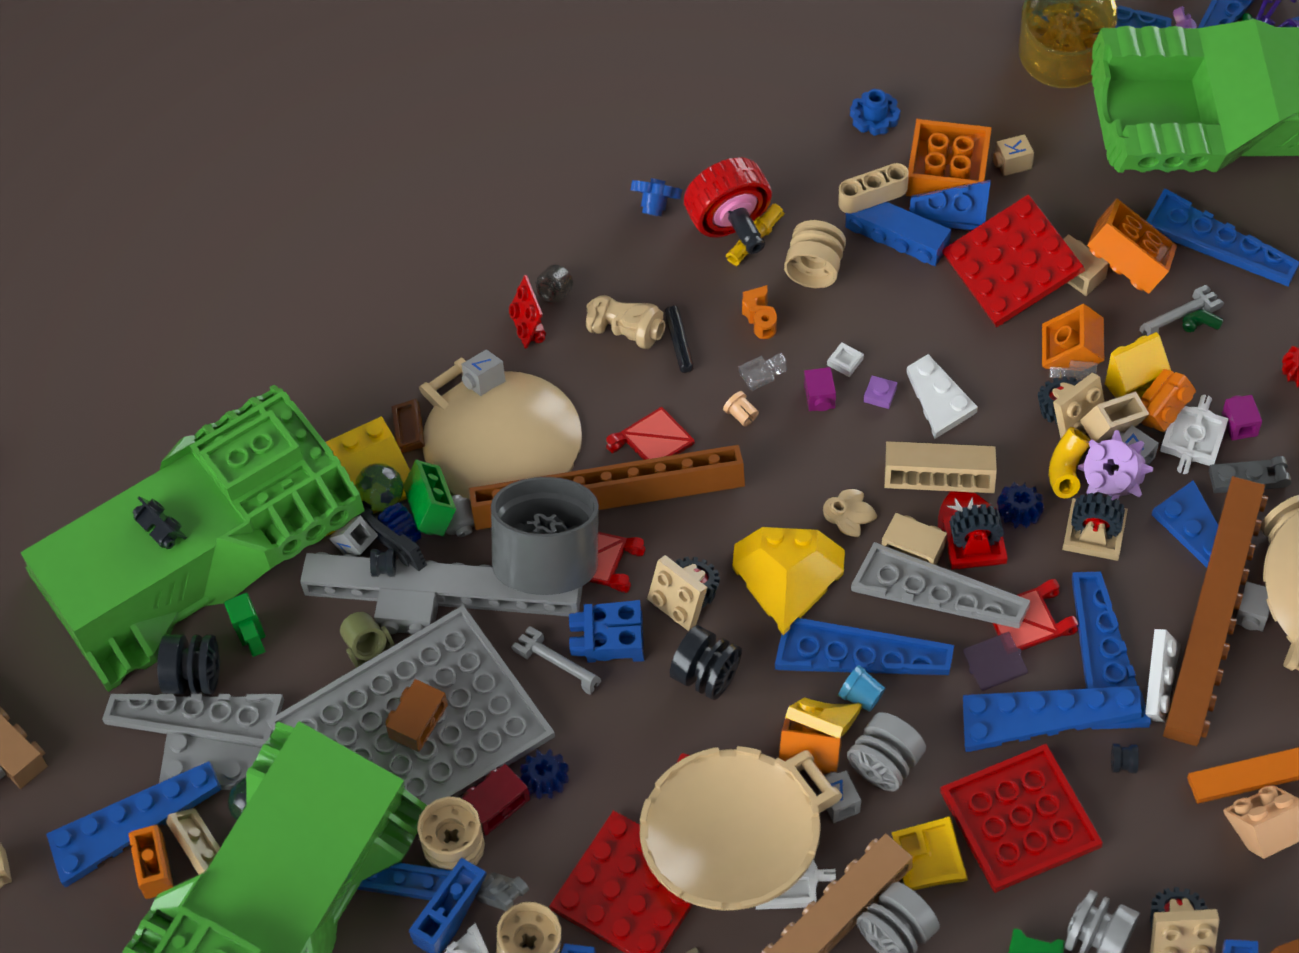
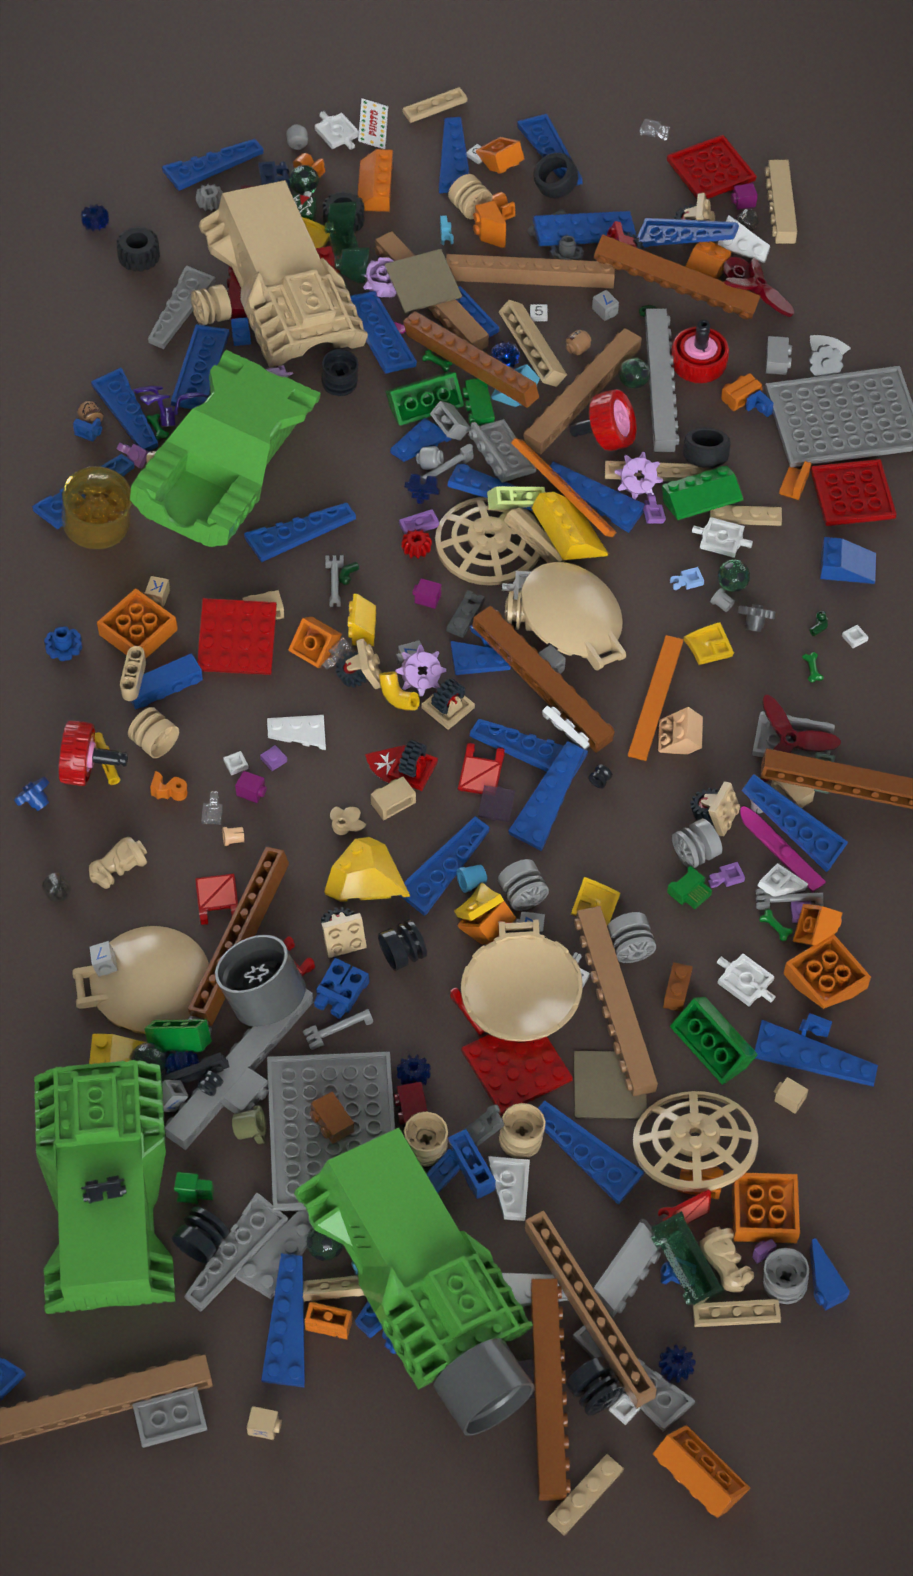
camera: 65 degrees left, 0 degrees up
(408, 426) = (98, 1024): reddish brown tile -> none
(527, 314) = (70, 912): red hinge -> none
(679, 339) = (154, 842): black axle -> none
(919, 583) = (422, 810): light grey wing -> none
(940, 467) = (351, 756): tan brick -> none
(954, 207) = (174, 642): blue wing -> none
(1020, 505) = (406, 730): clear blue gear -> none
(1020, 818) = (602, 846): red plate -> none
(1114, 415) = (388, 650): tan brick -> none
(1132, 246) = (276, 572): orange slope -> none
(1166, 399) = (393, 621): orange brick -> none
(1195, 435) = (421, 622): white plate -> none

